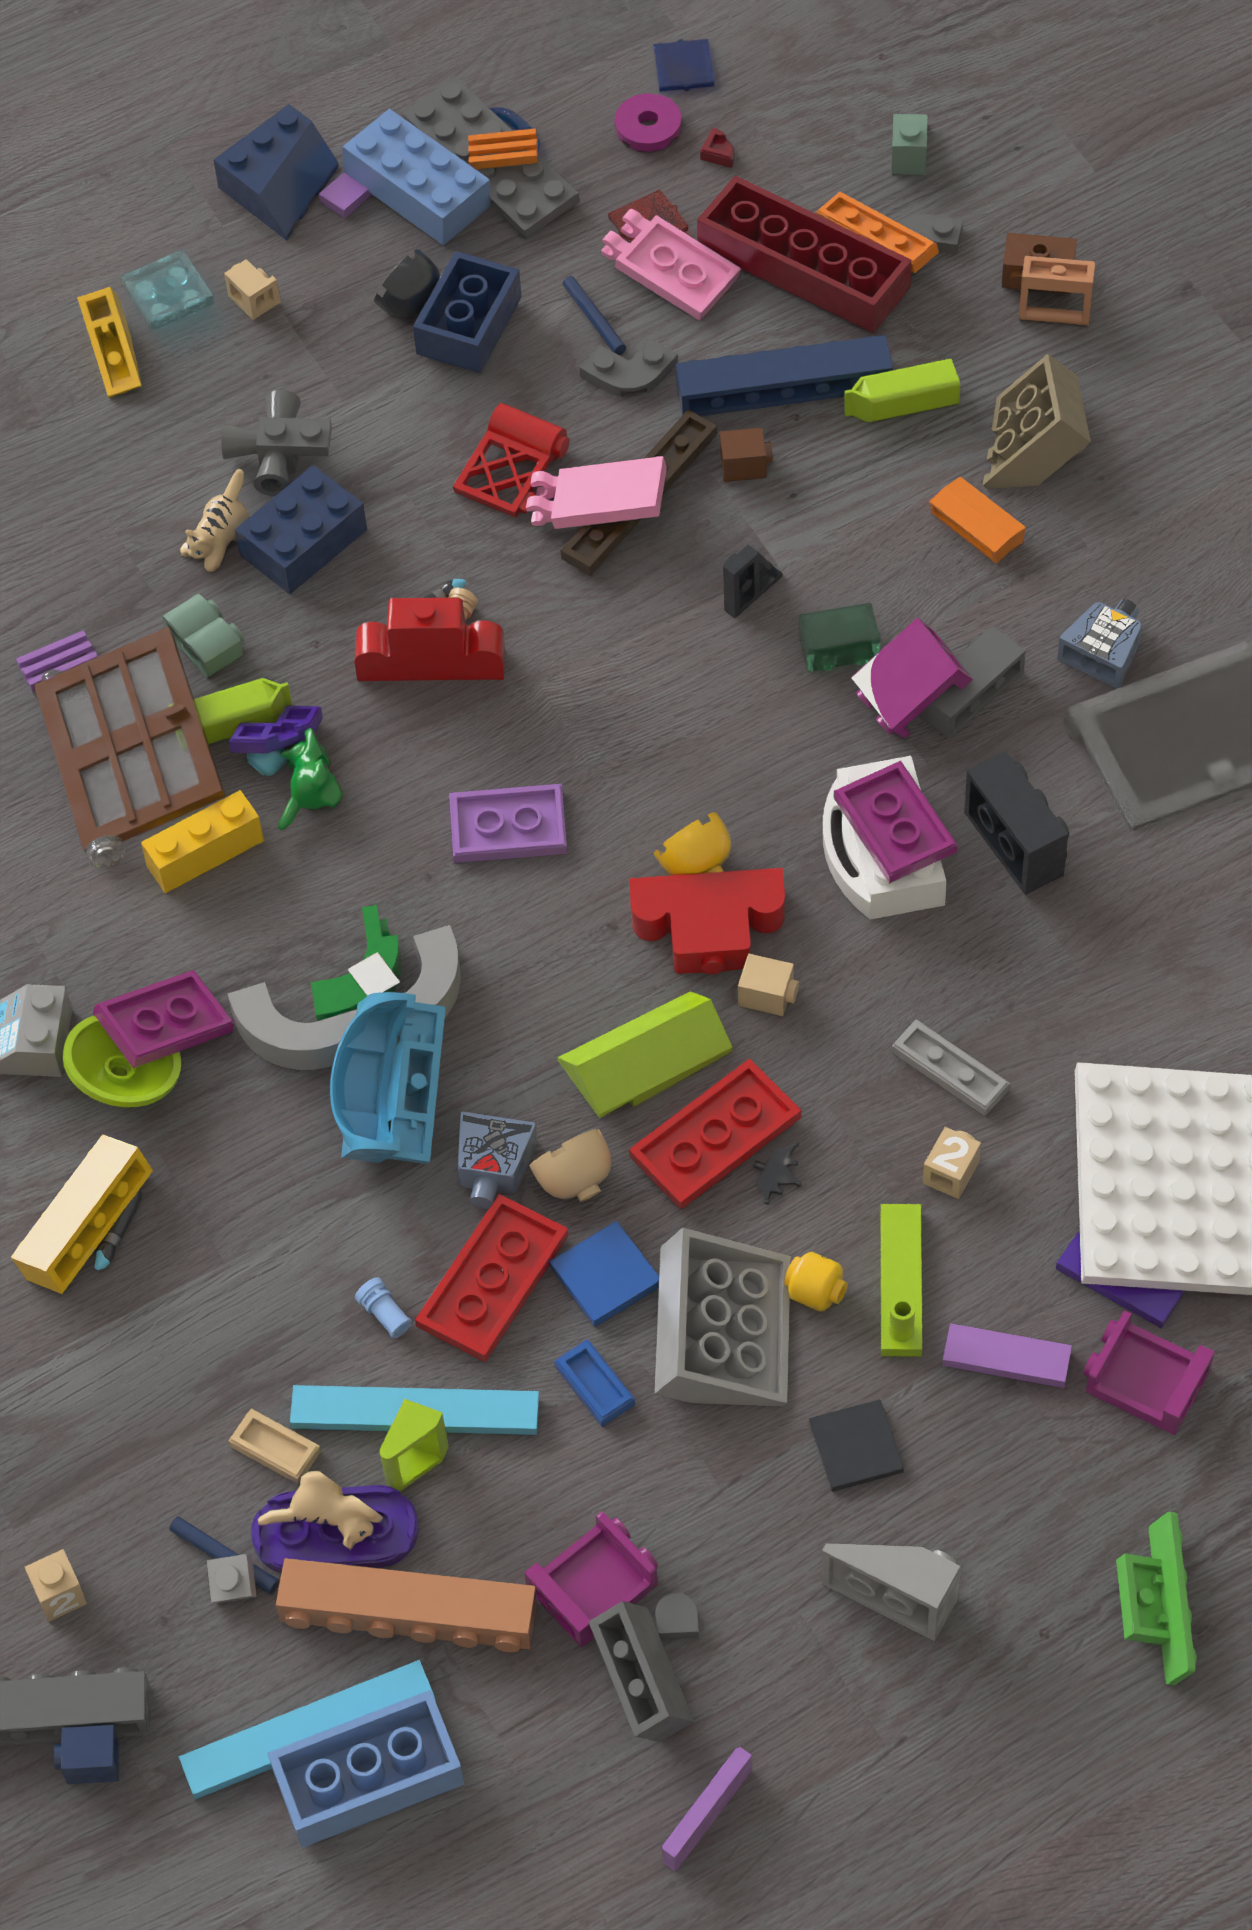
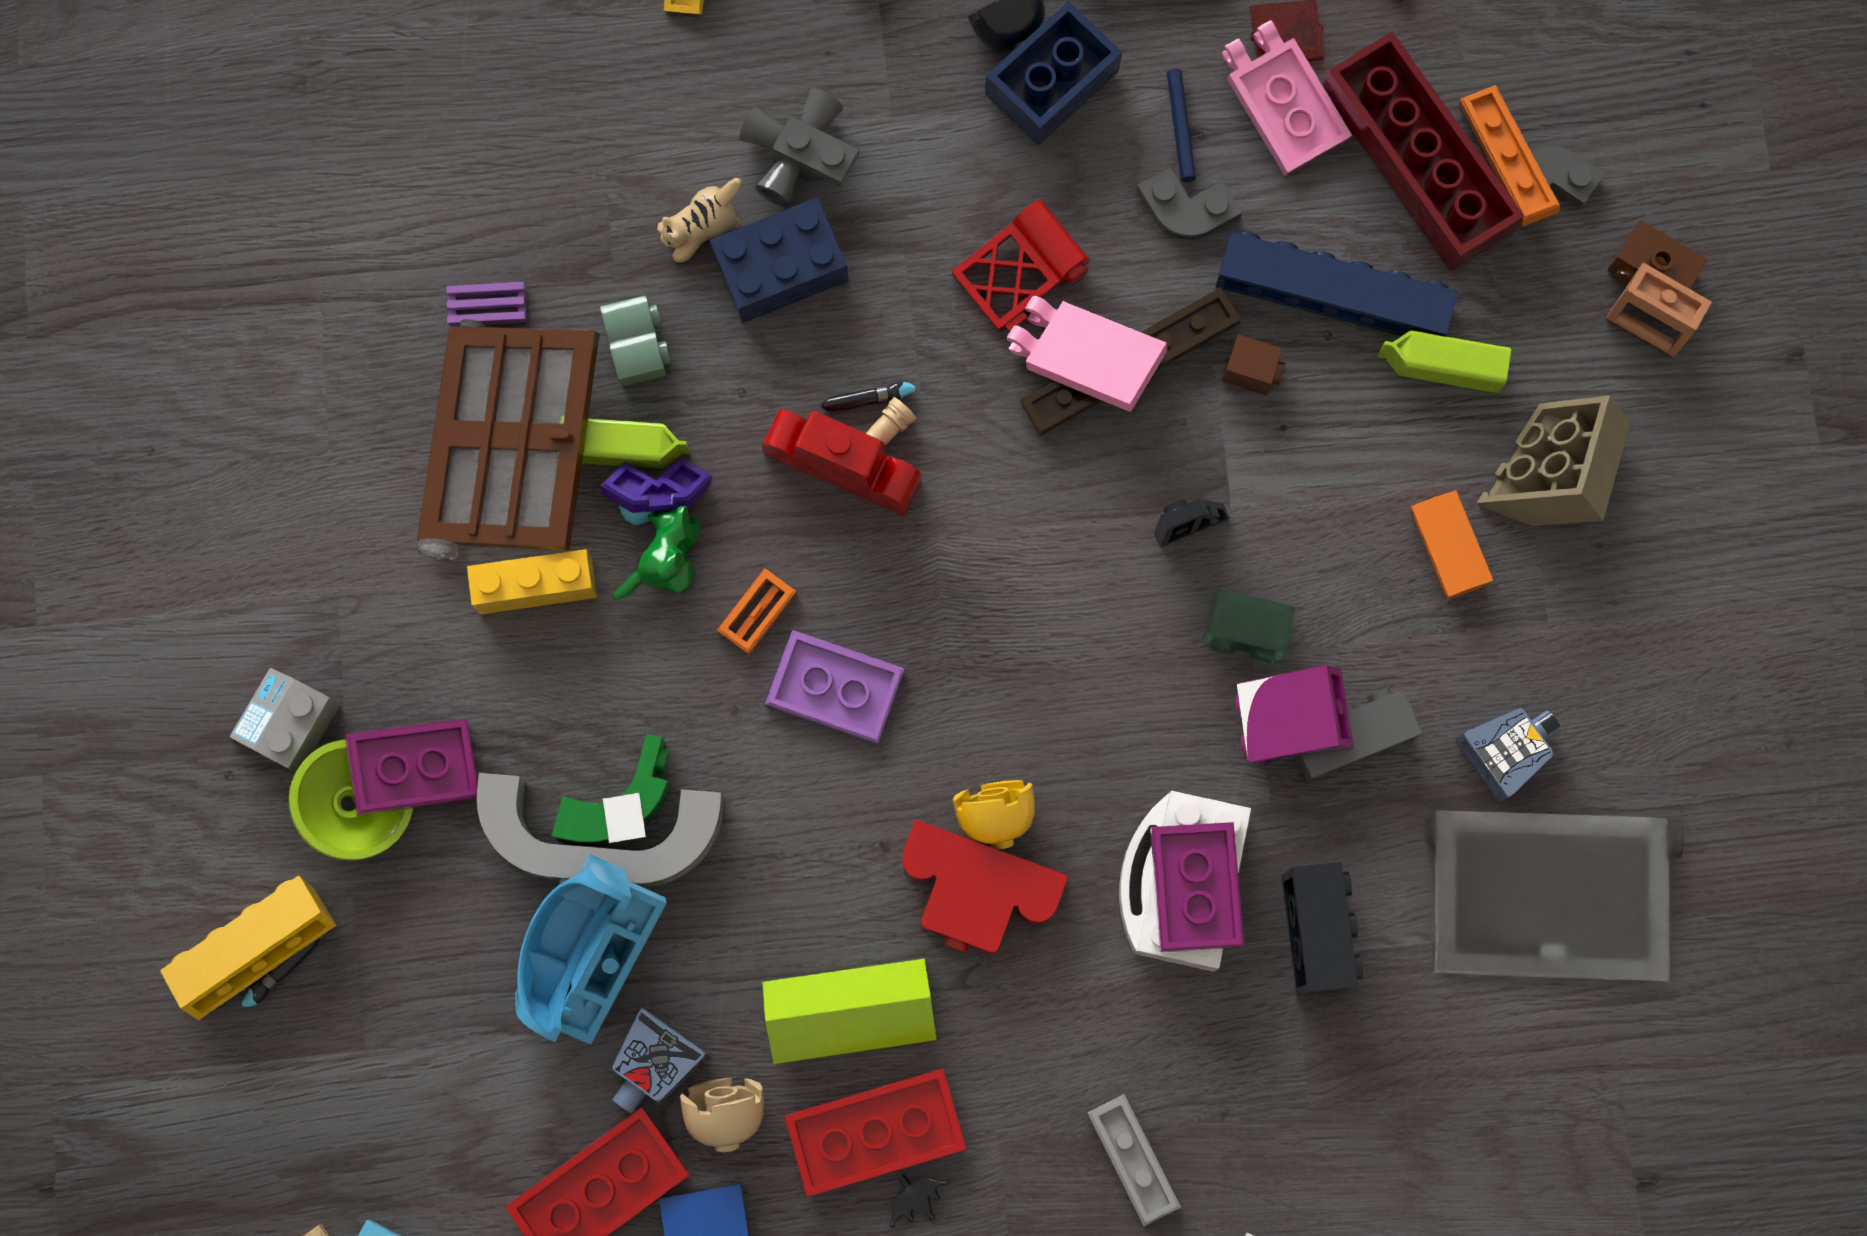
camera: 20 degrees right, 20 degrees up
(378, 1300) = (482, 1165): light blue pin -> none
(404, 819) = (771, 618): none -> orange tile
(767, 985) = (998, 992): tan brick -> none
(909, 144) = (1594, 54): sand green arch -> none

